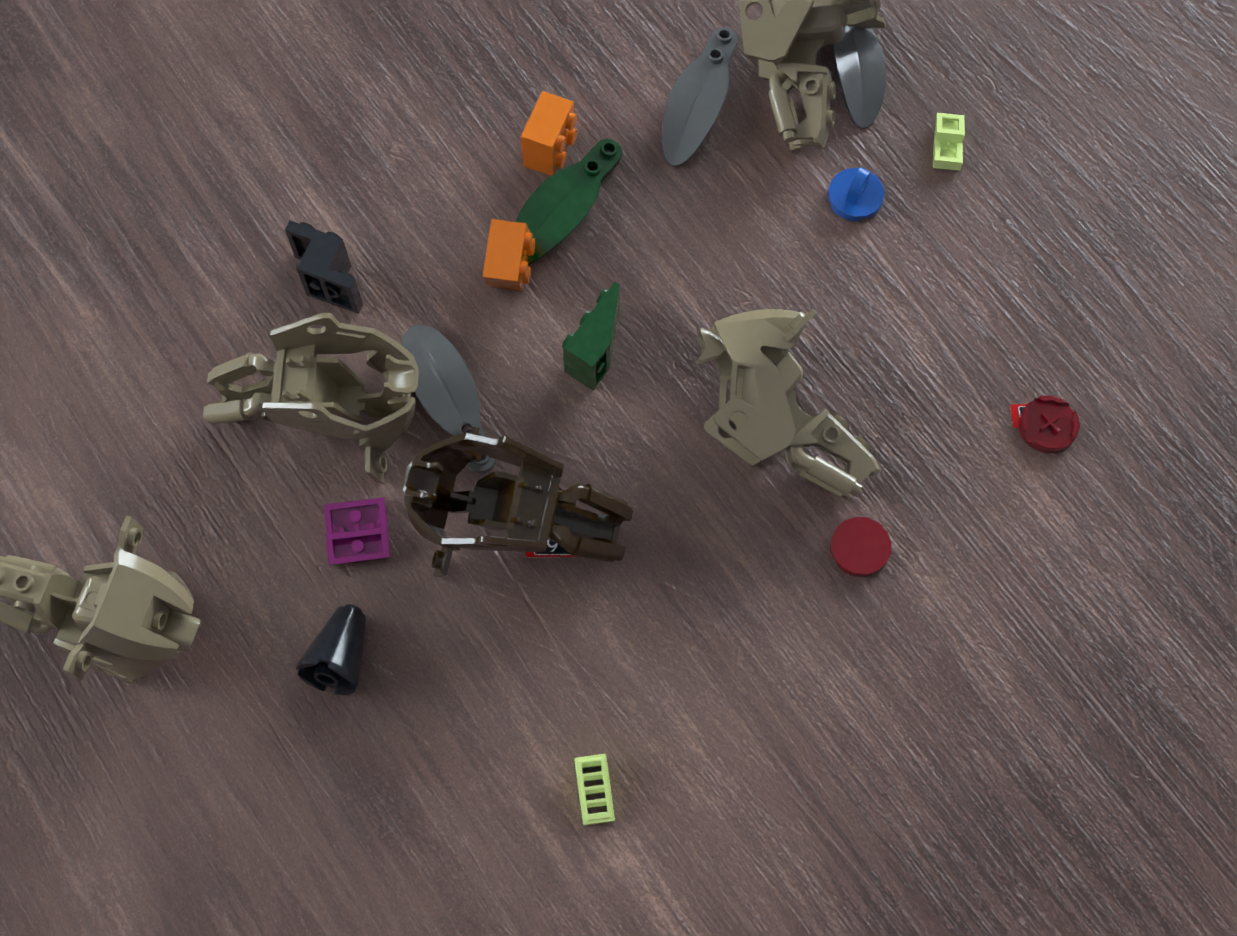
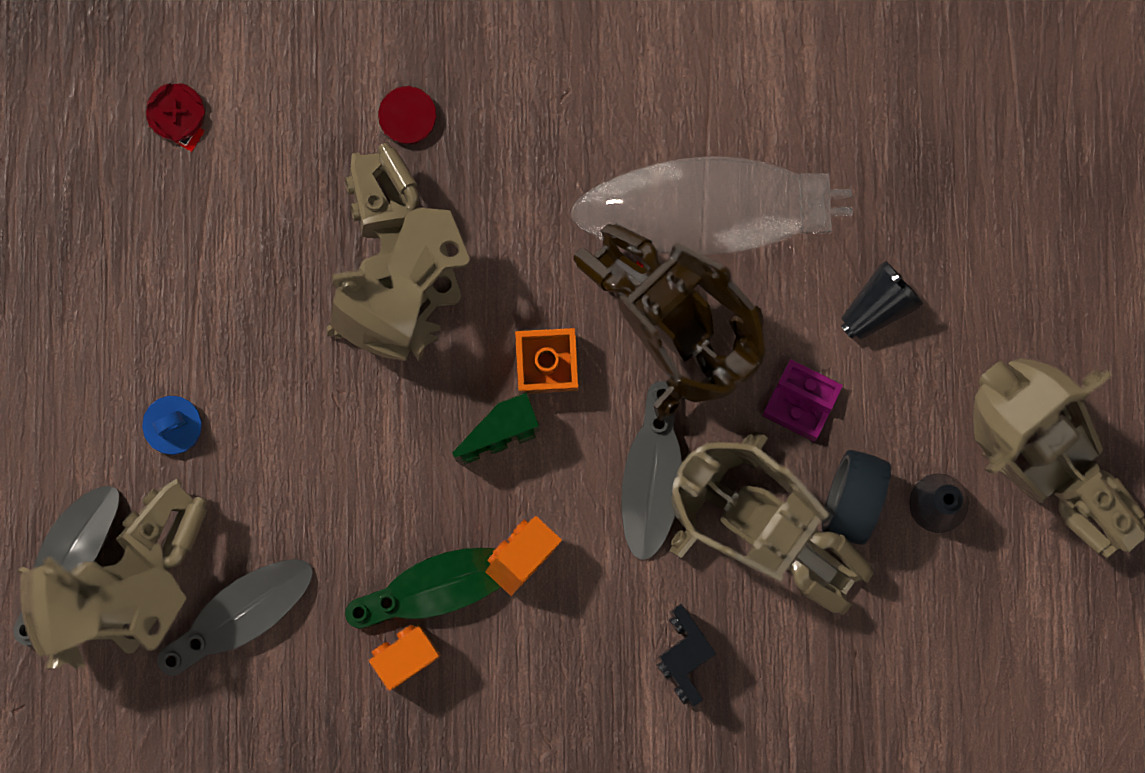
camera: 145 degrees left, 15 degrees up
(181, 520) = (928, 504): none -> black cone
(255, 466) = (857, 496): none -> black wheel
(542, 639) = (712, 204): none -> clear windscreen
(593, 761) = (739, 87): yellowish green slope -> none
(595, 417) = (546, 361): none -> orange brick
(948, 141) = (51, 420): yellowish green slope -> none

